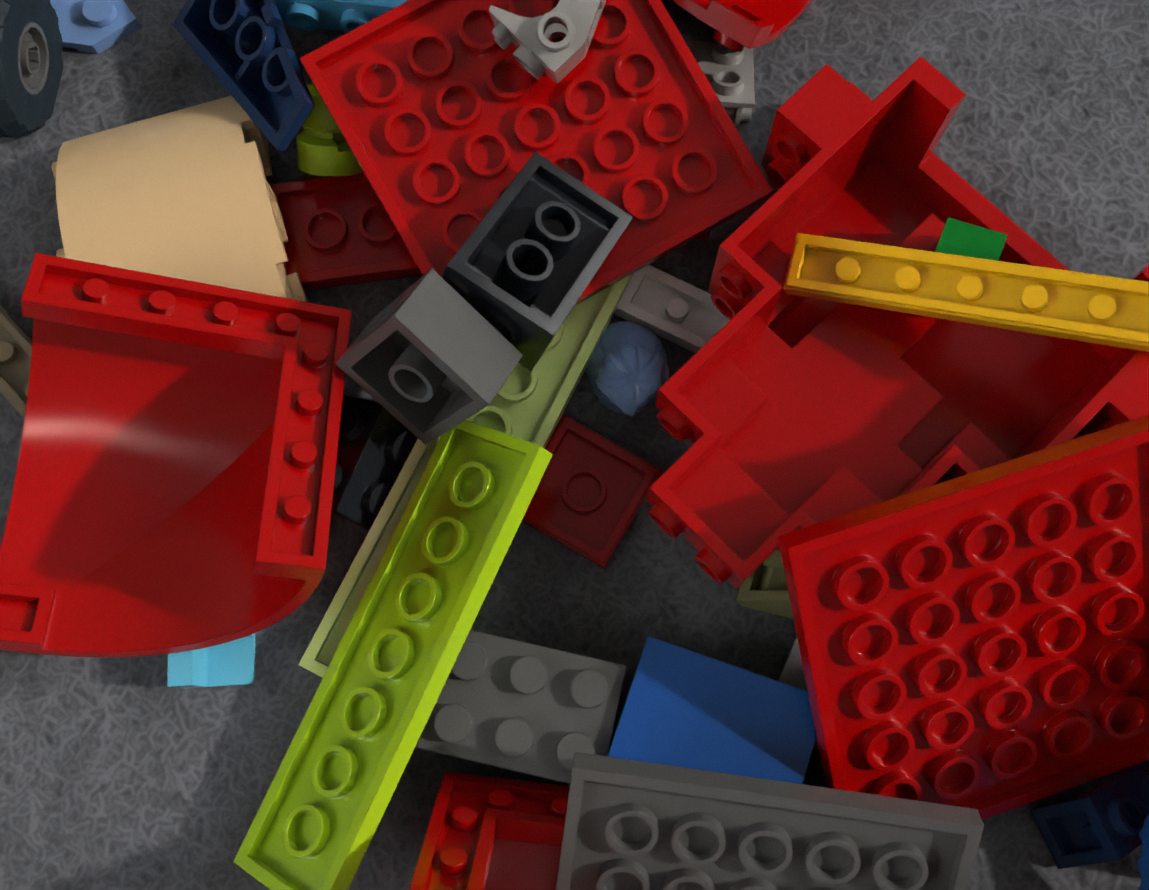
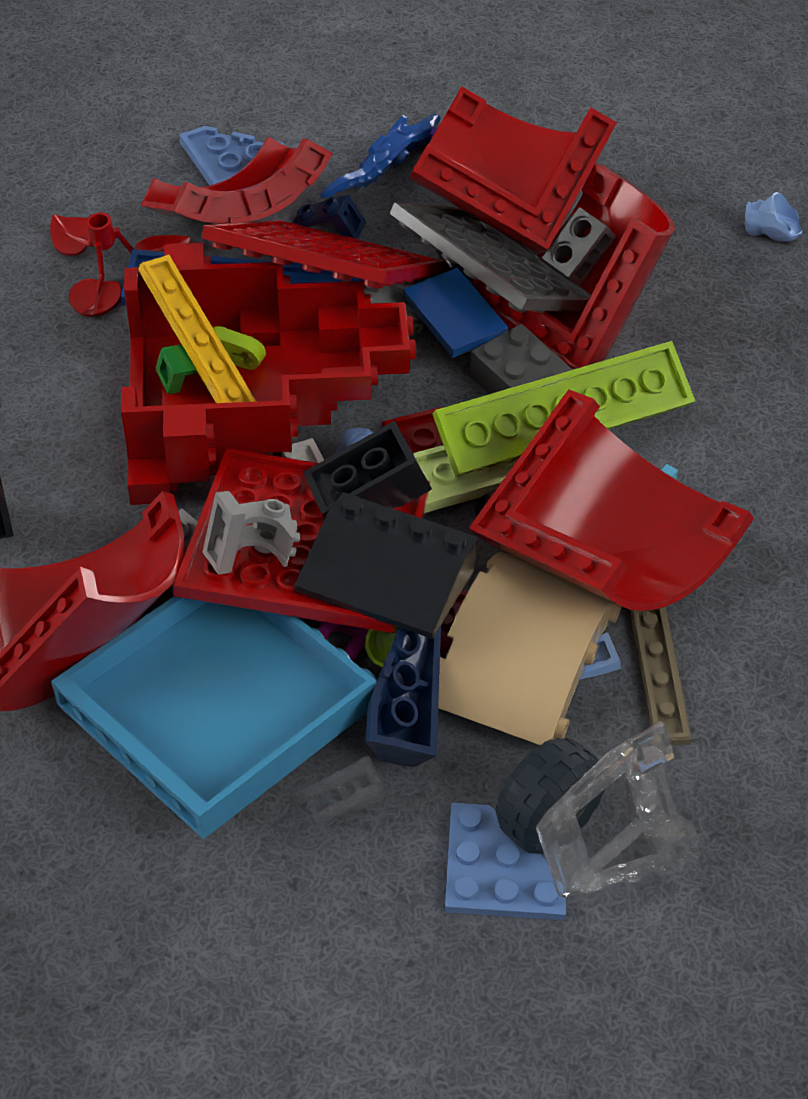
camera: 145 degrees left, 25 degrees down
(368, 119) = (388, 565): none -> black slope
(430, 358) = (452, 466): dark grey brick -> none
(936, 361) = (242, 349): none -> lime beam

